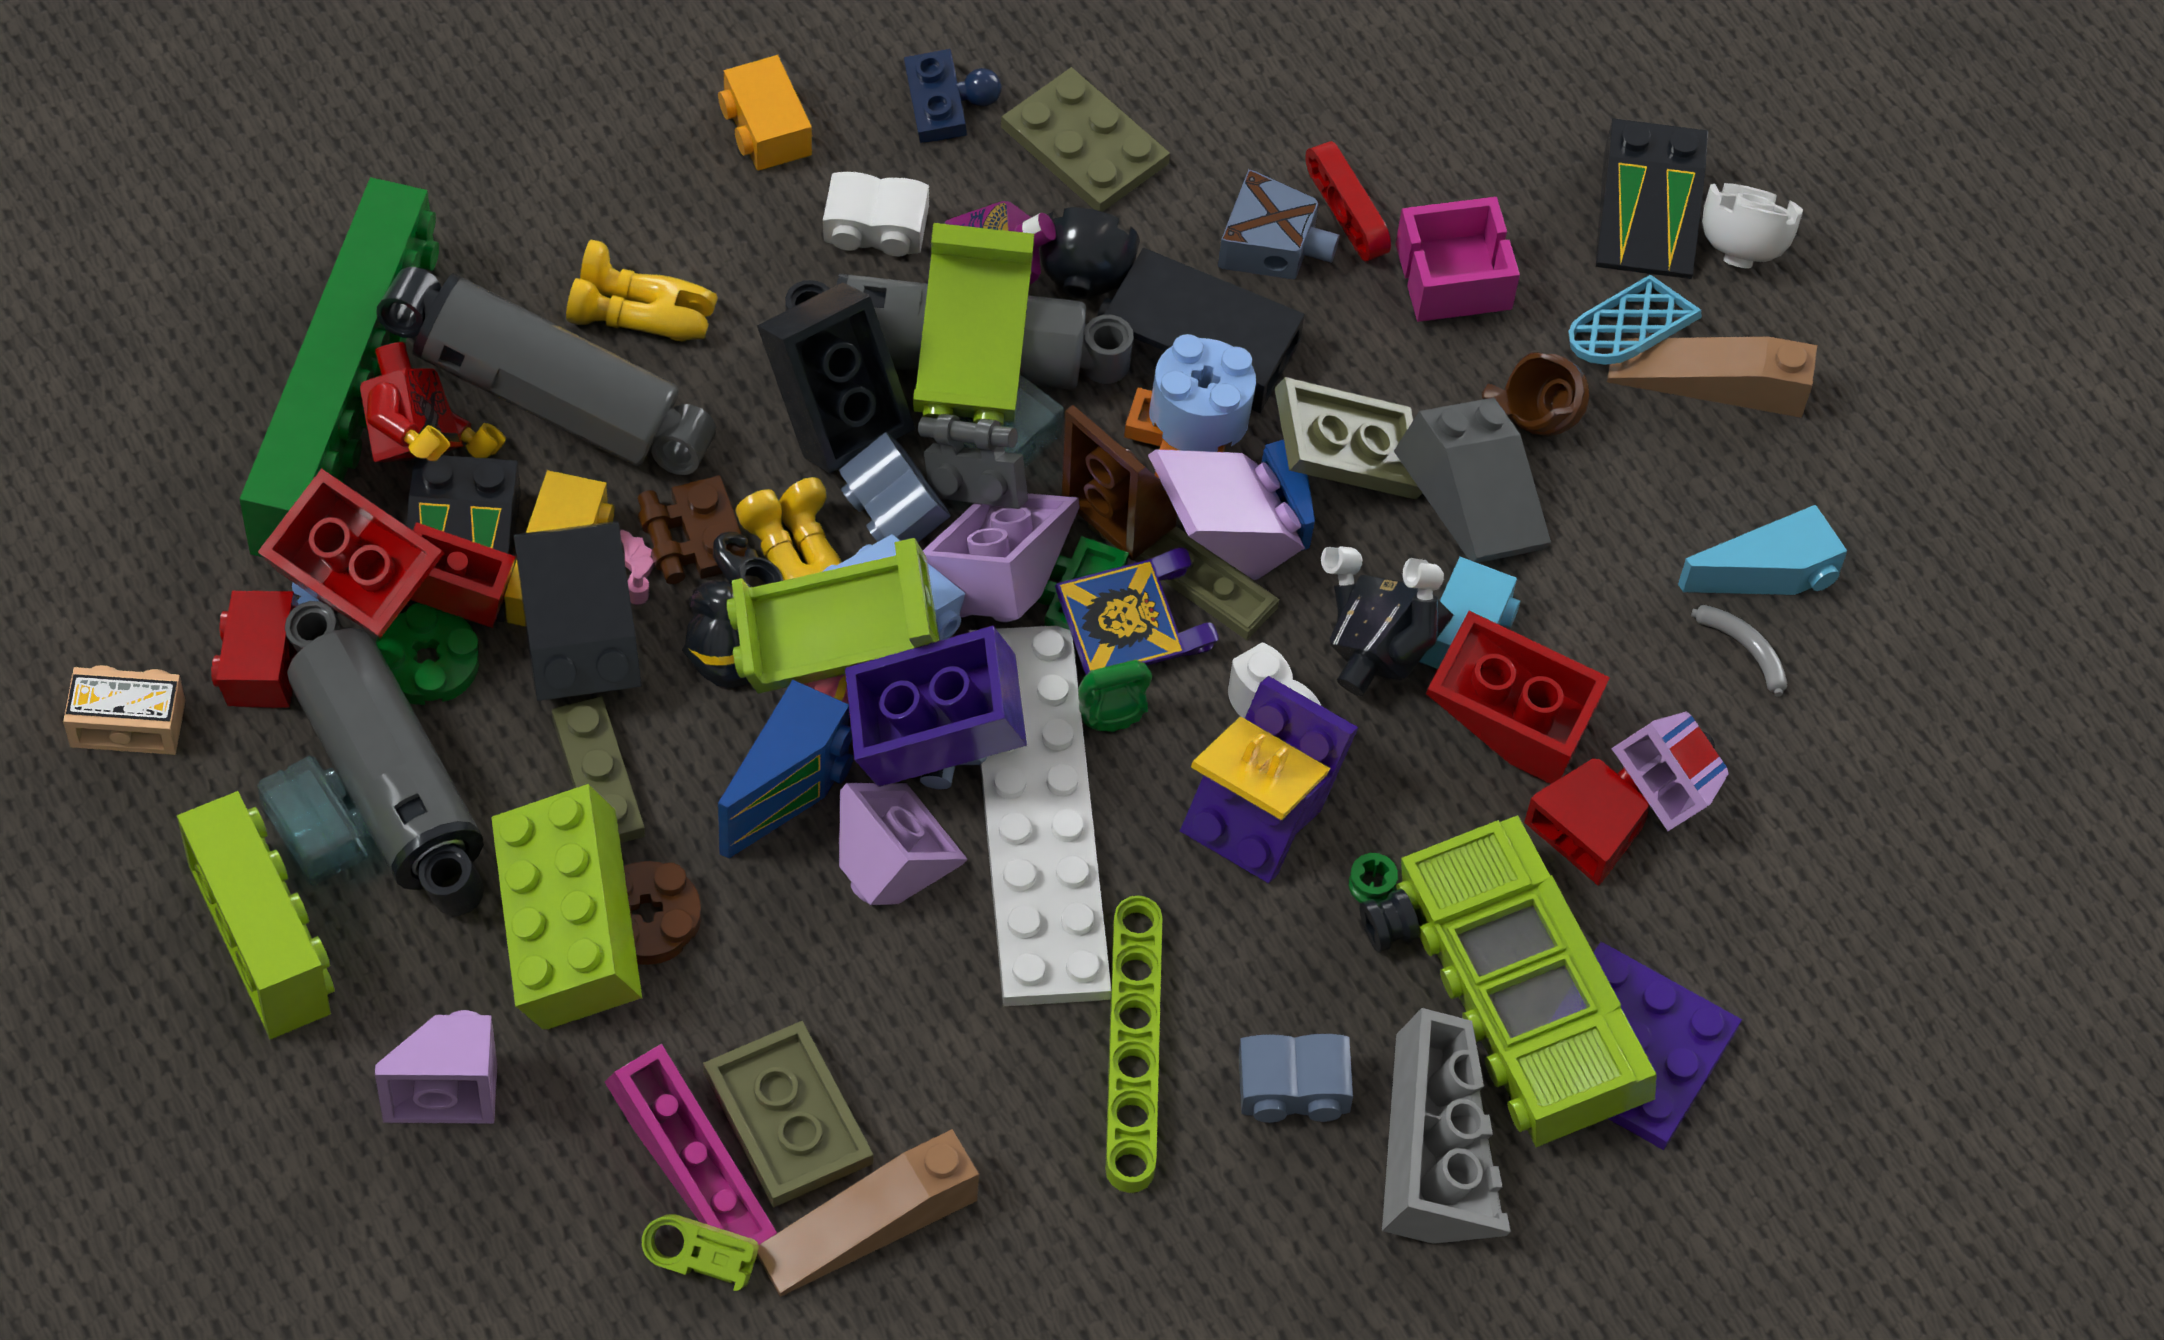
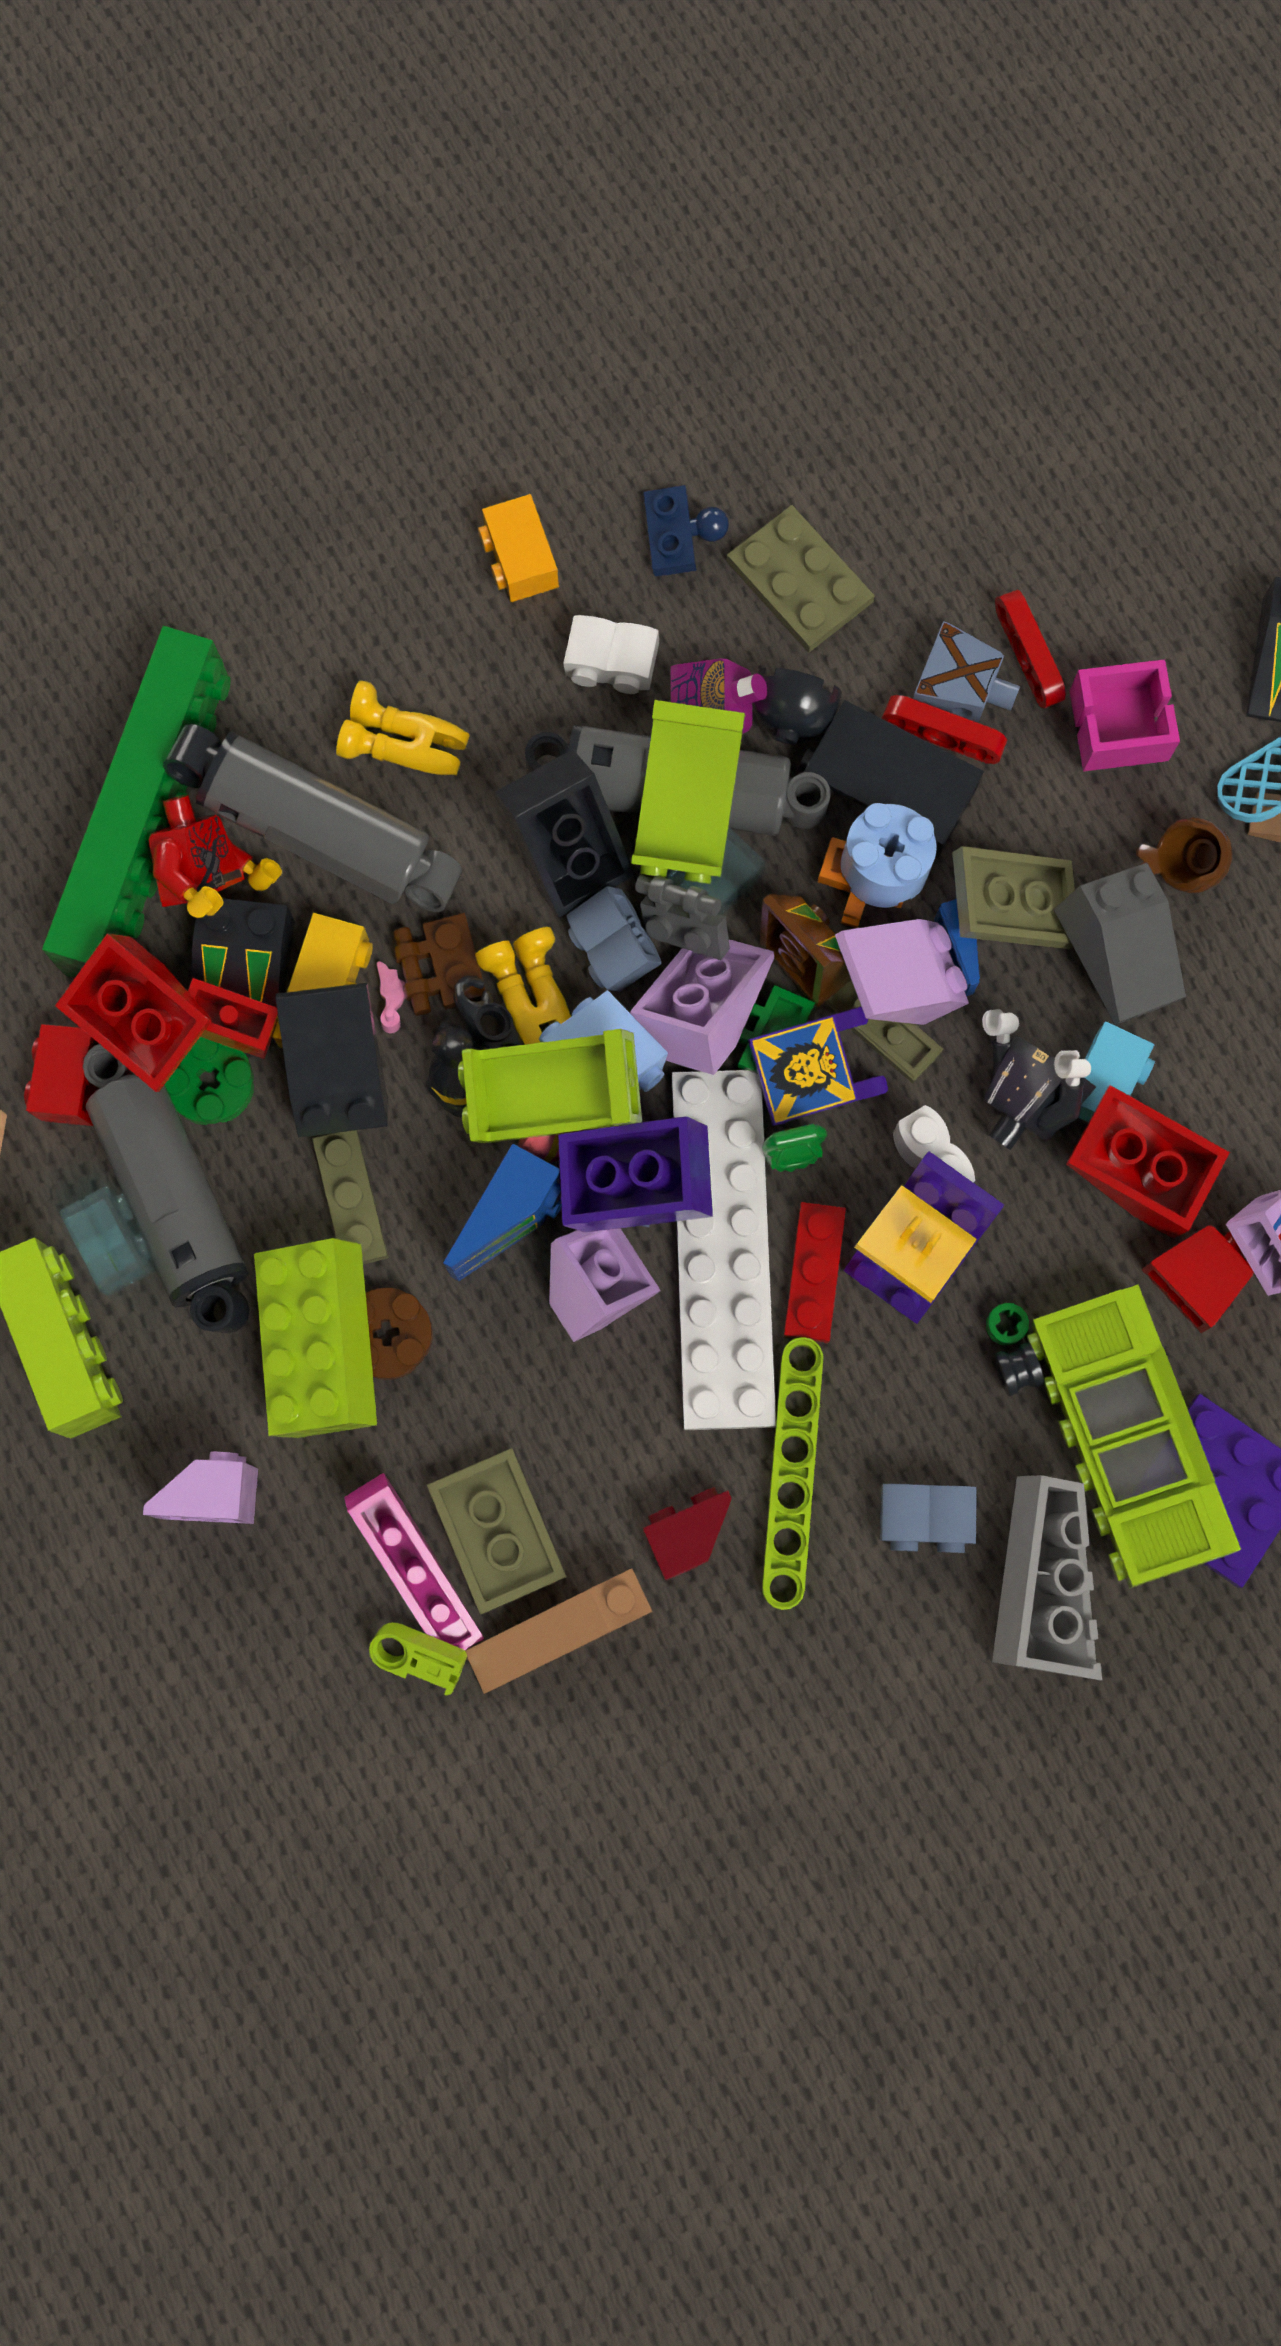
camera: 10 degrees right, 20 degrees up
(1013, 1108) = (687, 1537): none -> dark red slope
(1146, 830) = (814, 1272): none -> red plate
(1284, 284) = (945, 729): none -> red beam

